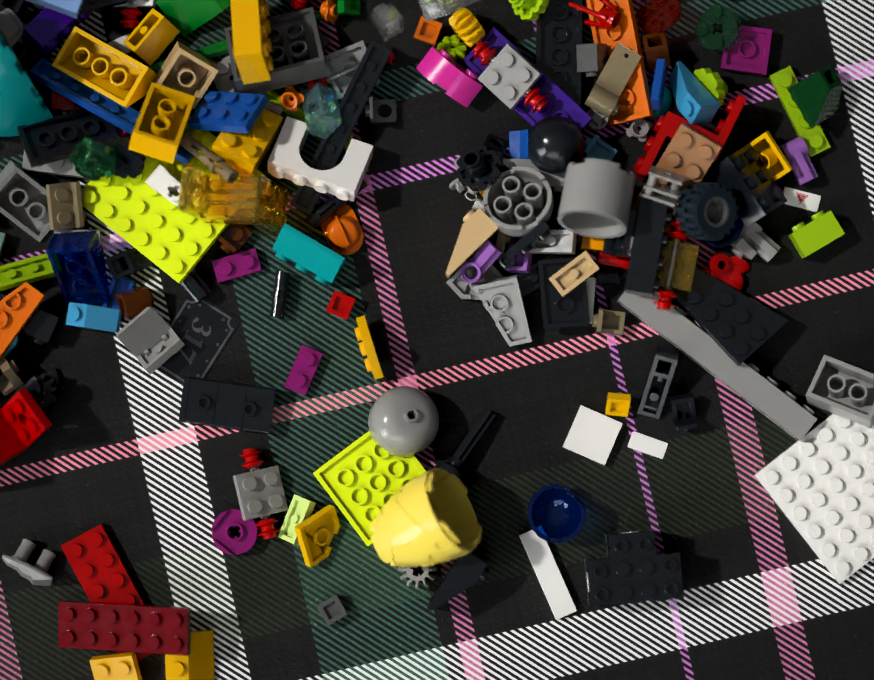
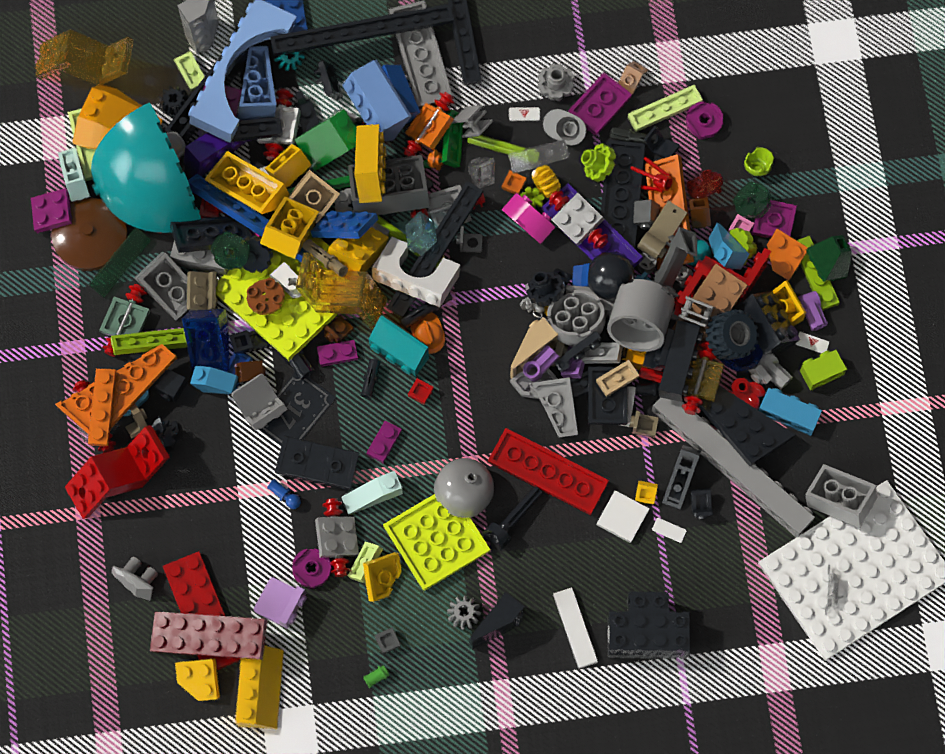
camera: 10 degrees right, 15 degrees down
(134, 218) = (257, 300): none -> dark orange plate
(202, 576) = (280, 602): none -> lavender bracket
(203, 453) = (292, 500): none -> blue pin
(285, 99) = (391, 224): orange plate -> none
(296, 435) = (372, 493): none -> light aqua slope
(323, 652) = (376, 676): none -> bright green pin
(367, 348) = (439, 423): yellow plate -> none
(426, 522) = (474, 565): light yellow piece -> none
(500, 389) = (548, 471): none -> red plate
(556, 513) = (586, 575): clear blue cylinder -> none
(639, 101) = (681, 244): none -> dark grey hose
(659, 84) = (701, 233): blue tile -> none
(706, 59) = (741, 222): none -> bright pink plate
(763, 92) = (785, 254): none -> orange plate
(780, 289) = (790, 411): none -> dark azure brick
(843, 508) = (831, 589): none -> light grey piece

